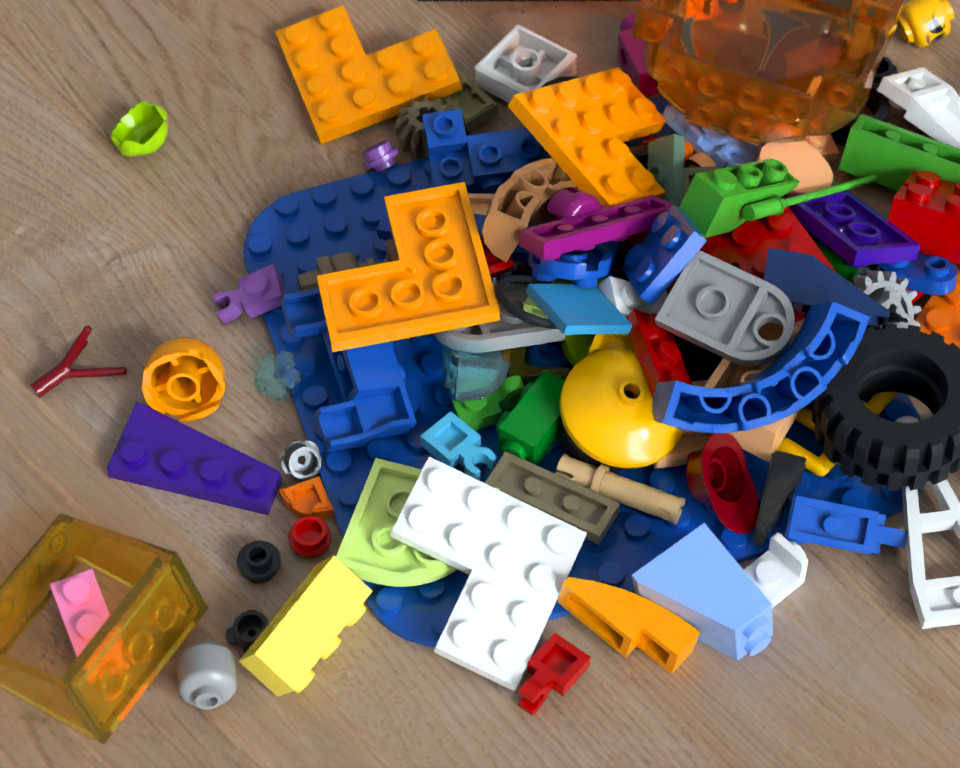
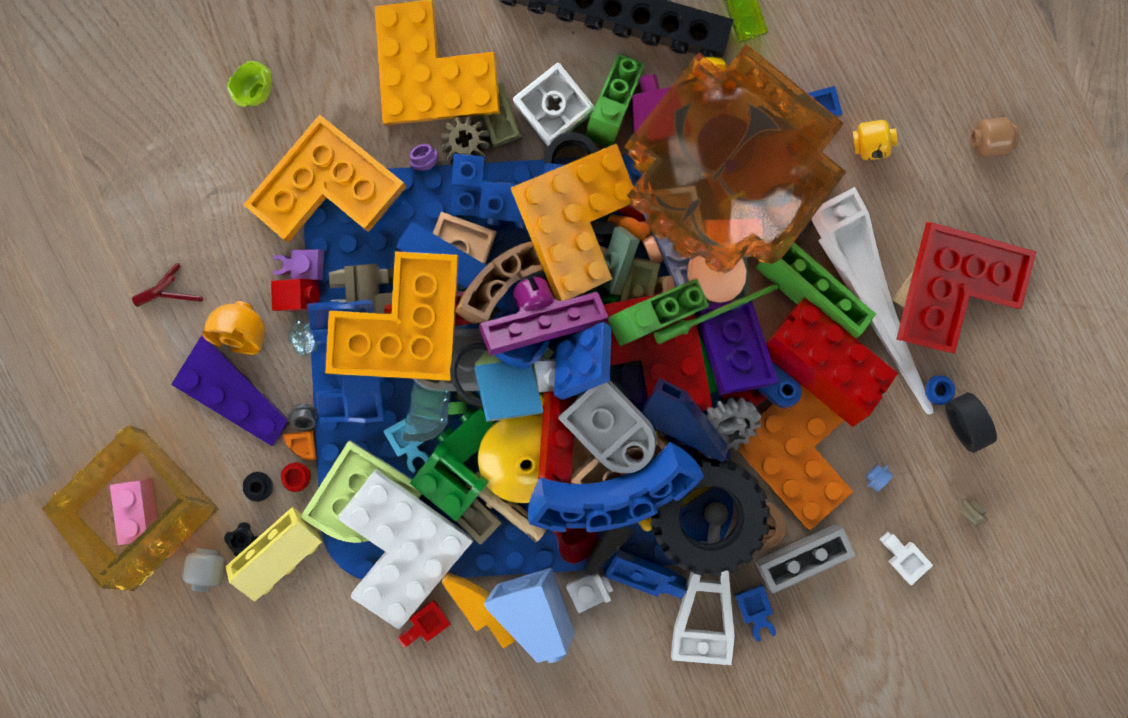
camera: 20 degrees right, 35 degrees up
(255, 323) = (294, 294): none -> red brick
(257, 184) = (322, 167): none -> light orange plate
(528, 472) = (443, 488): none -> green plate
(597, 44) = (614, 101): none -> bright green slope

